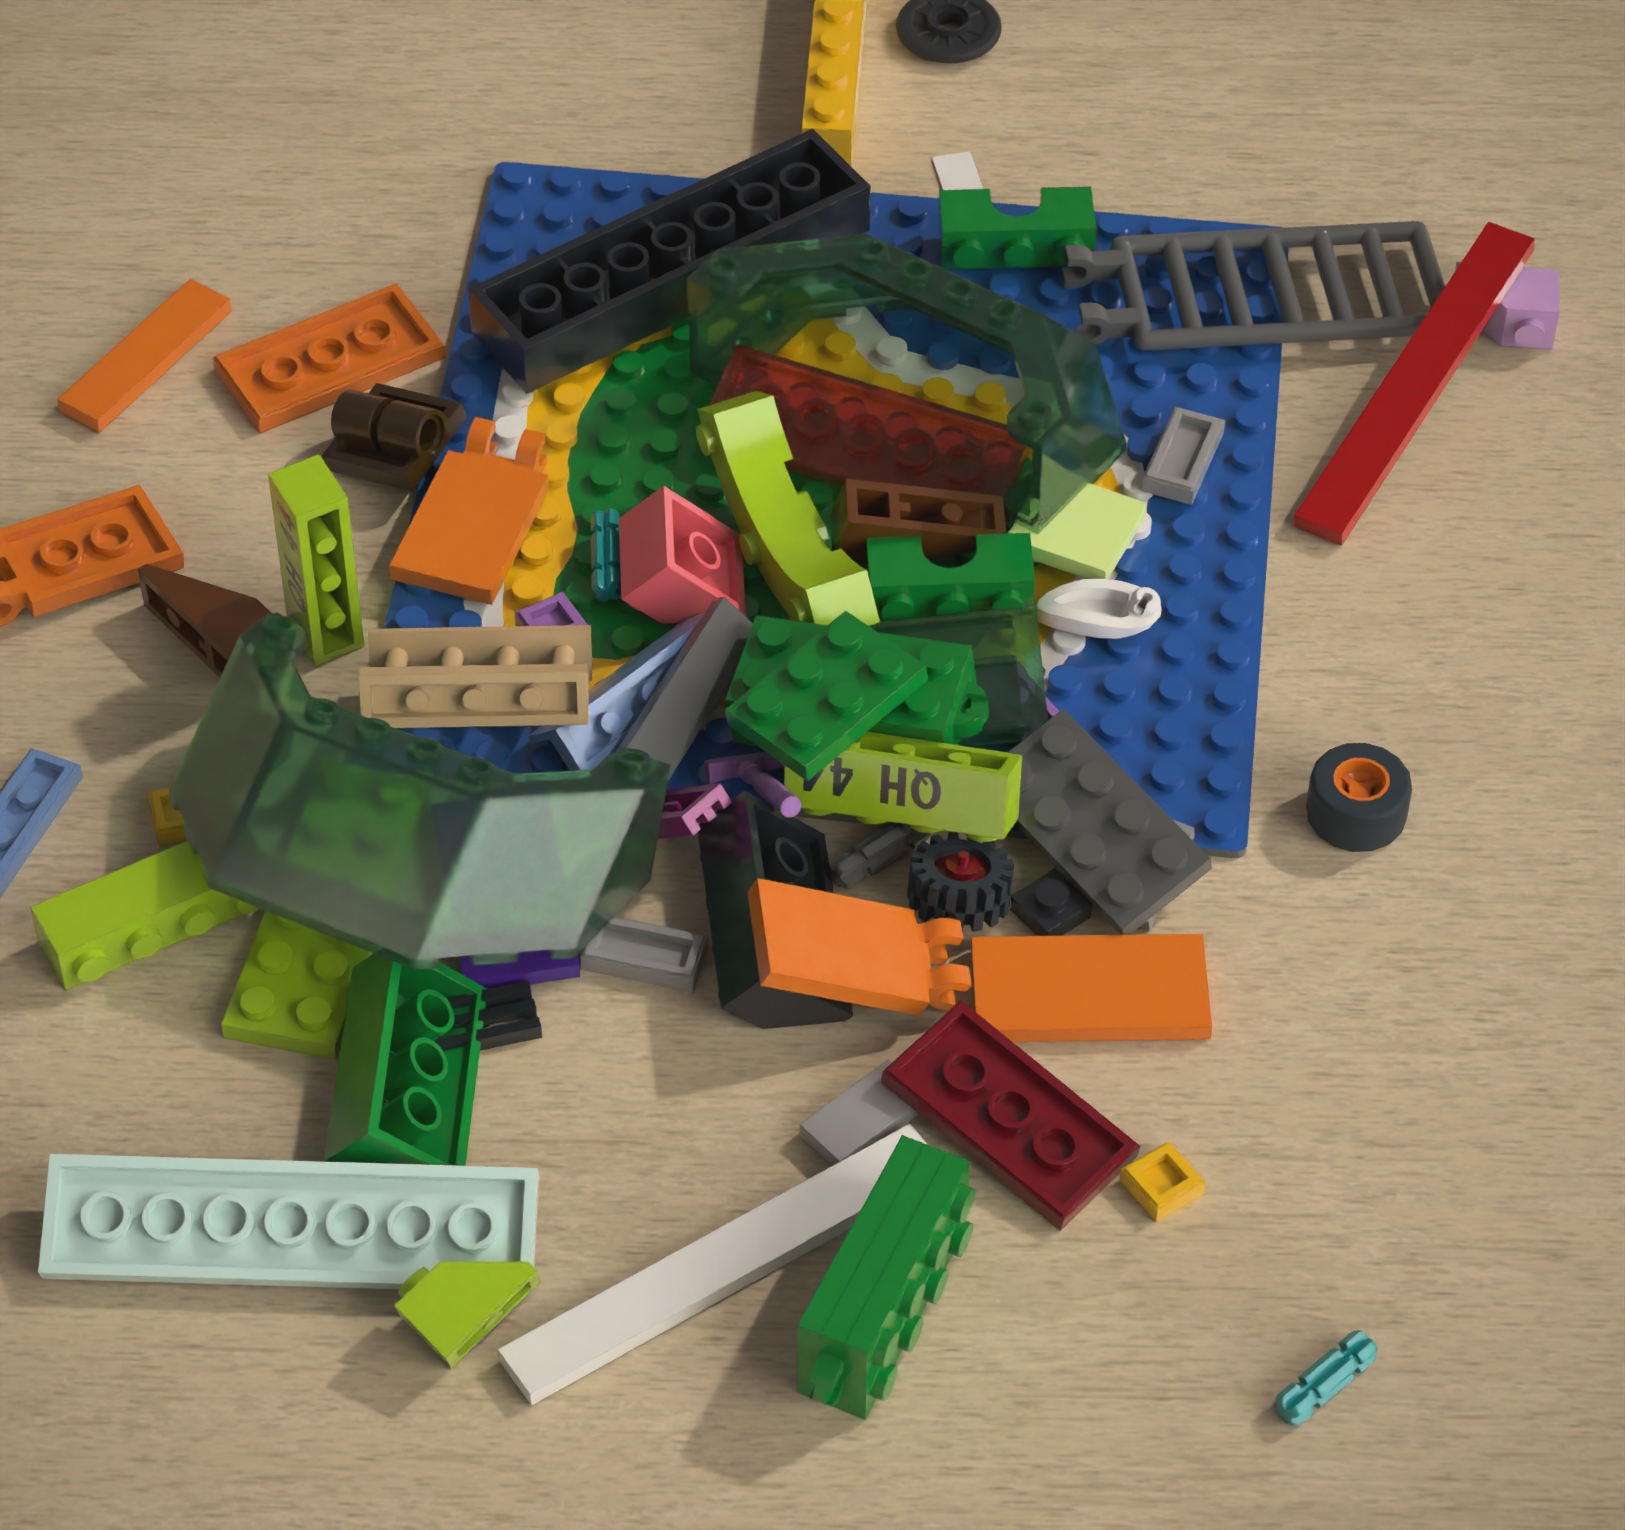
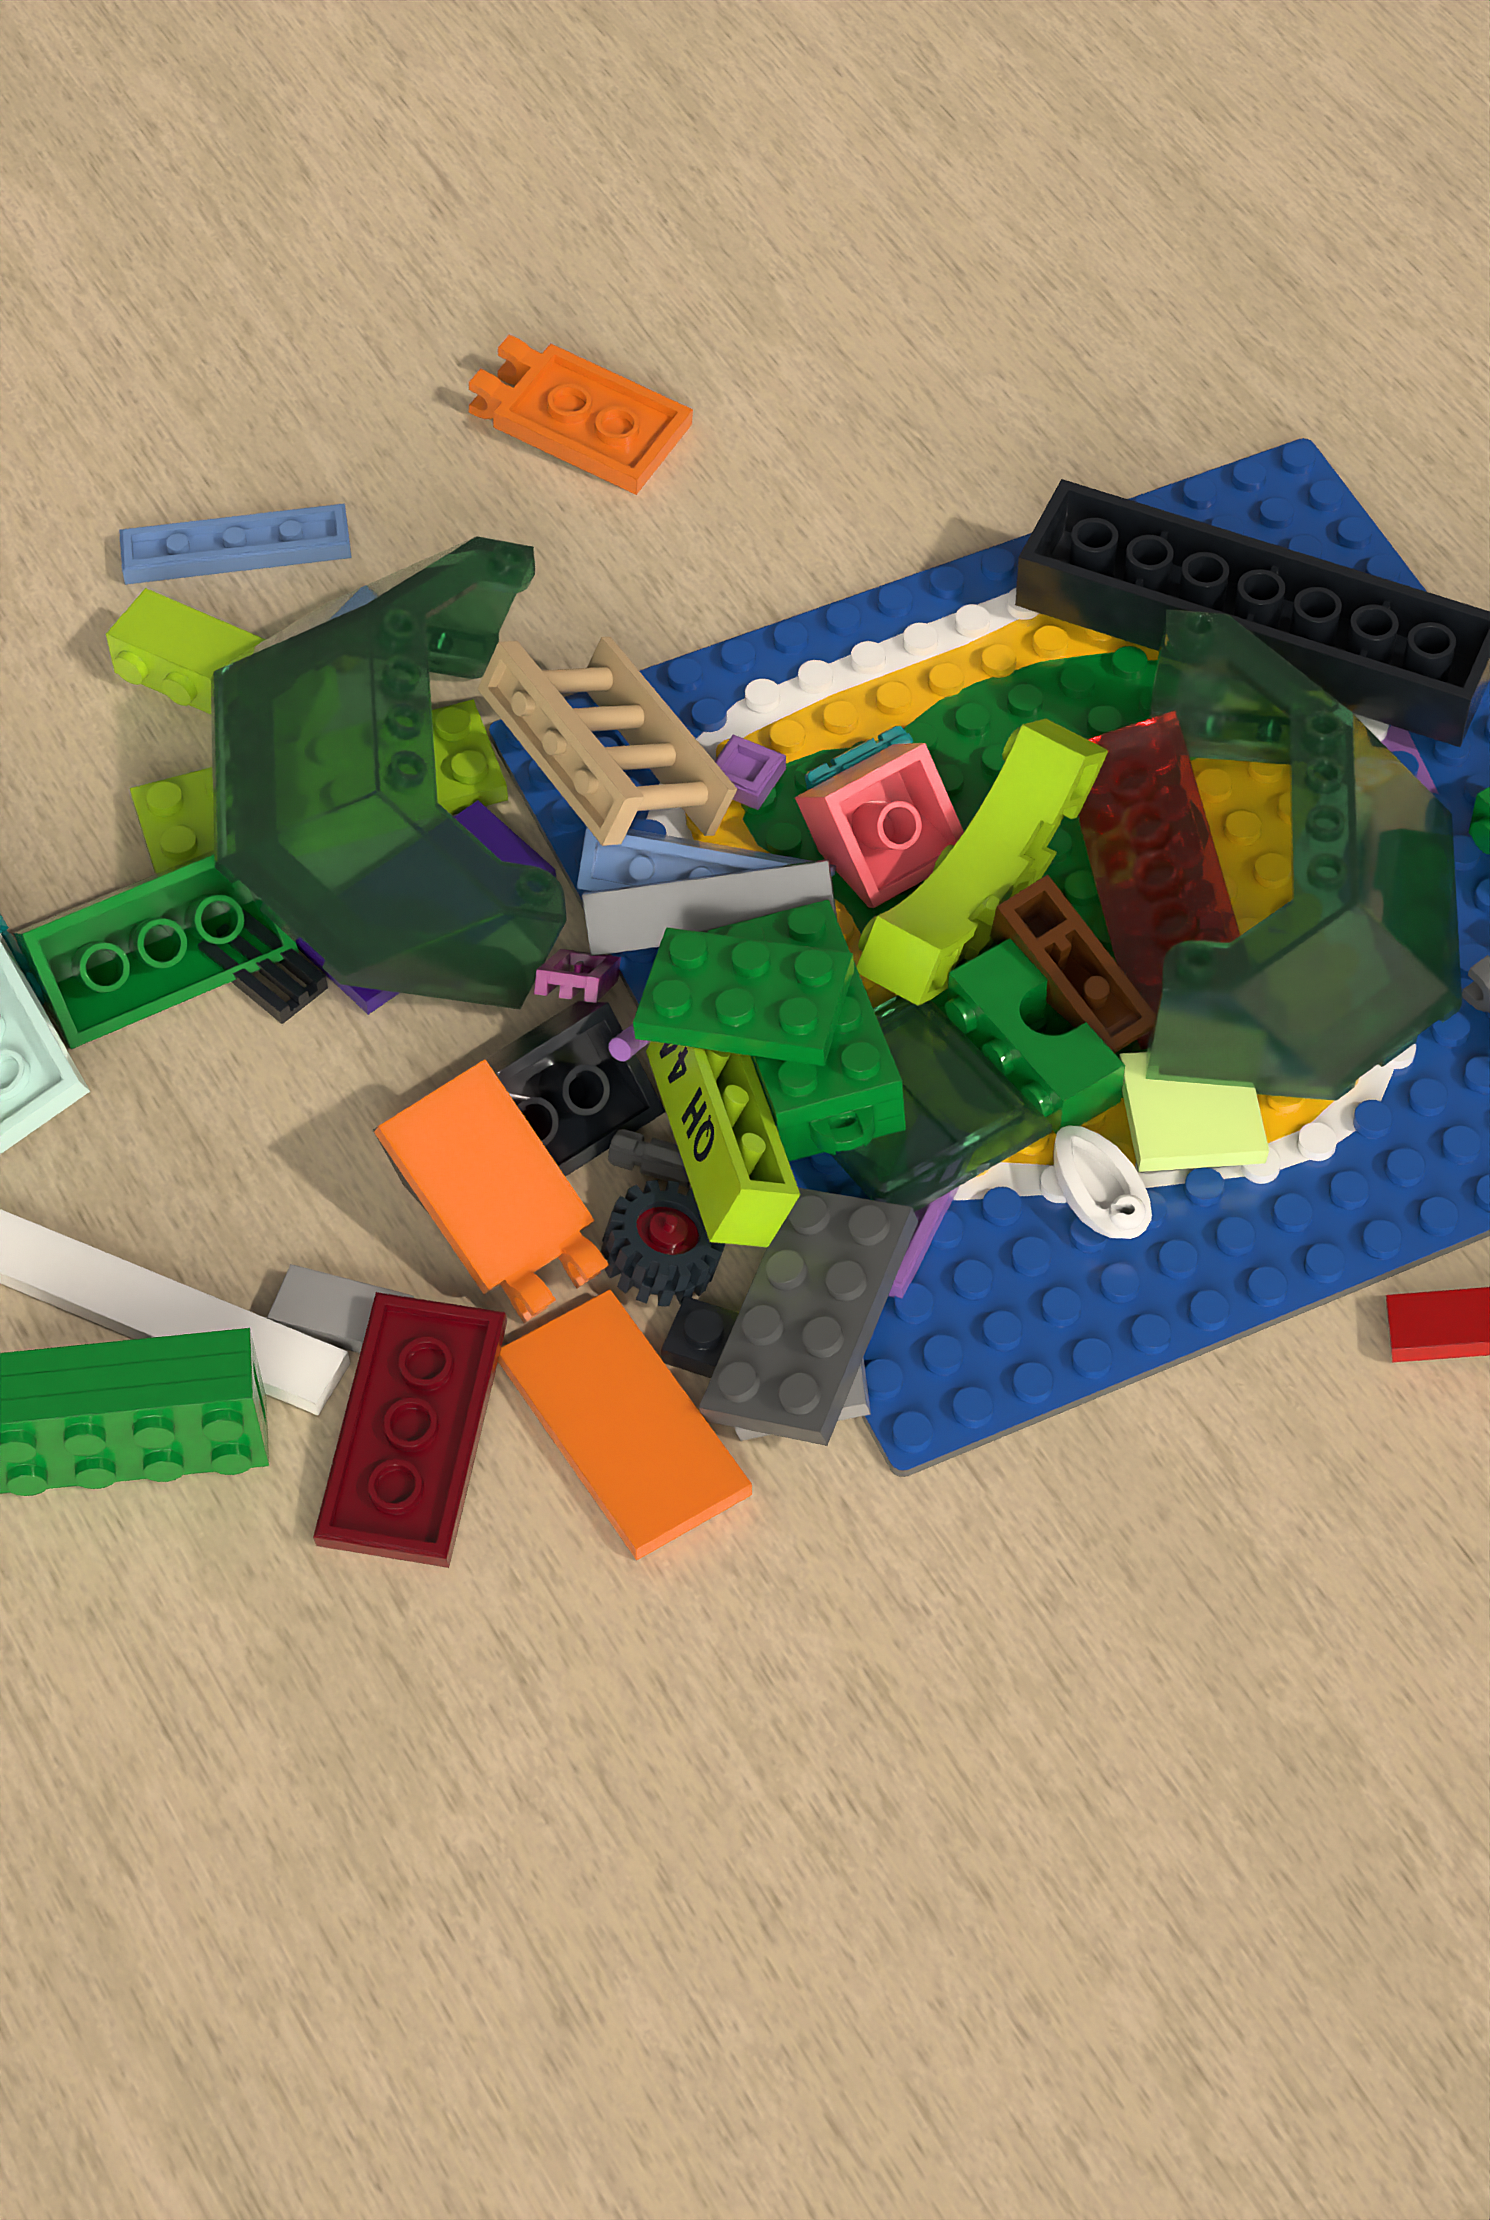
camera: 60 degrees right, 5 degrees up
(144, 355) = (853, 333): orange tile -> none
(200, 613) = (565, 554): reddish brown slope -> none
(317, 558) = (630, 545): lime brick -> none
(326, 355) = (957, 453): orange tile -> none
(390, 434) = (882, 536): dark brown plate -> none
(474, 517) = (833, 646): orange tile -> none
(646, 954) = (420, 1043): light grey tile -> none
(1162, 1181) = (422, 1602): yellow tile -> none
(1183, 455) = (1379, 1155): light grey tile -> none
(1325, 1377) = (262, 1863): teal axle -> none
(1358, 797) = (1026, 1511): black wheel -> none

